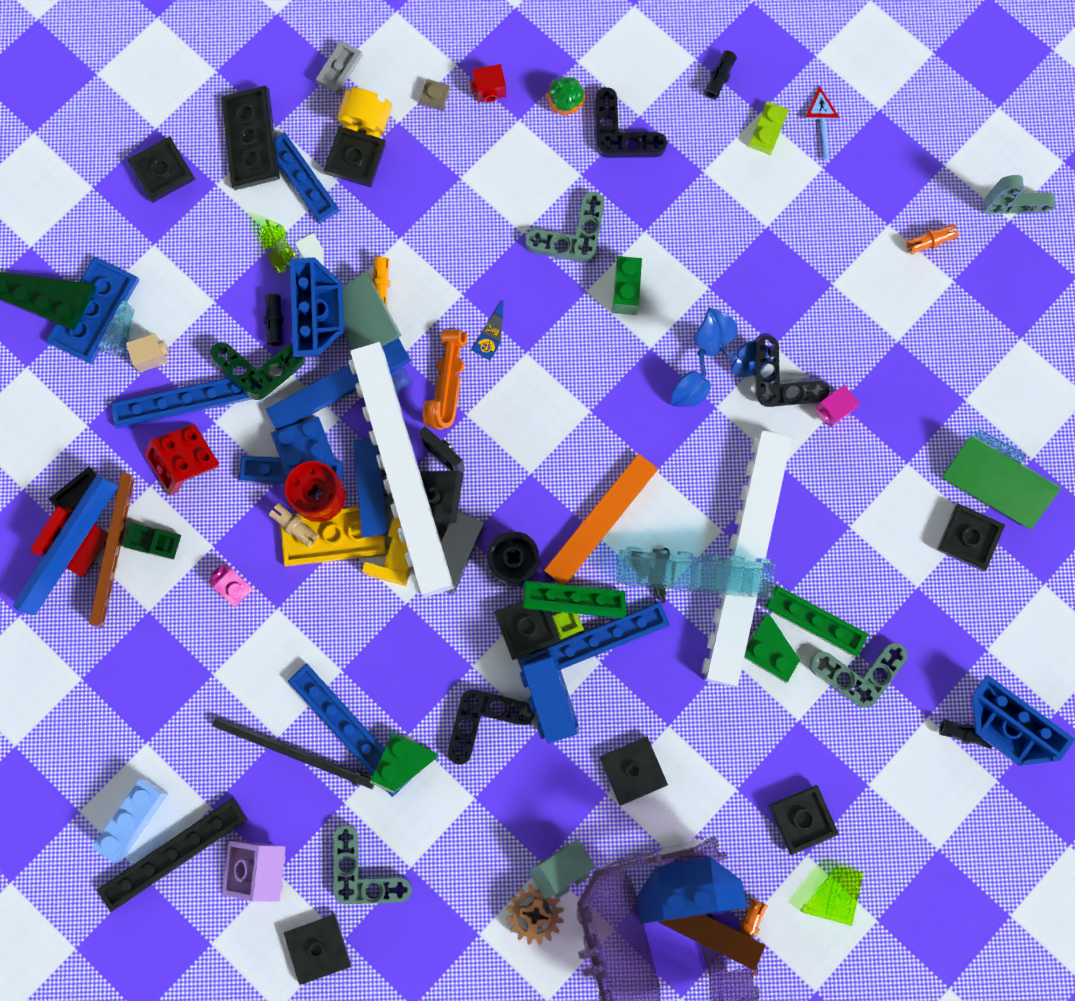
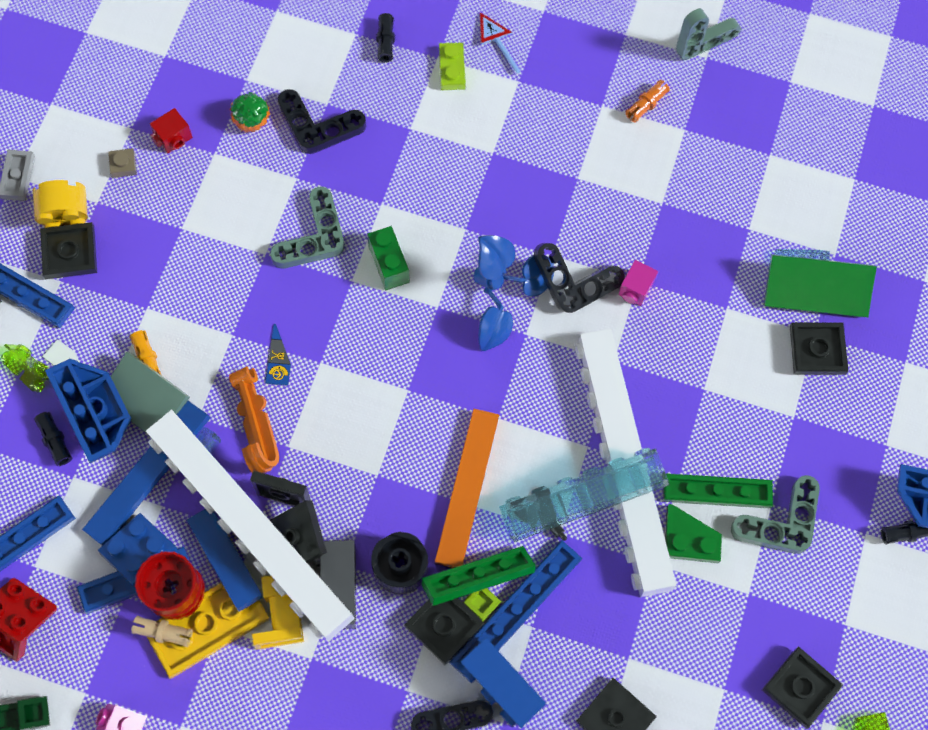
camera: 25 degrees left, 10 degrees down
(260, 376) = (61, 500): dark green beam -> none

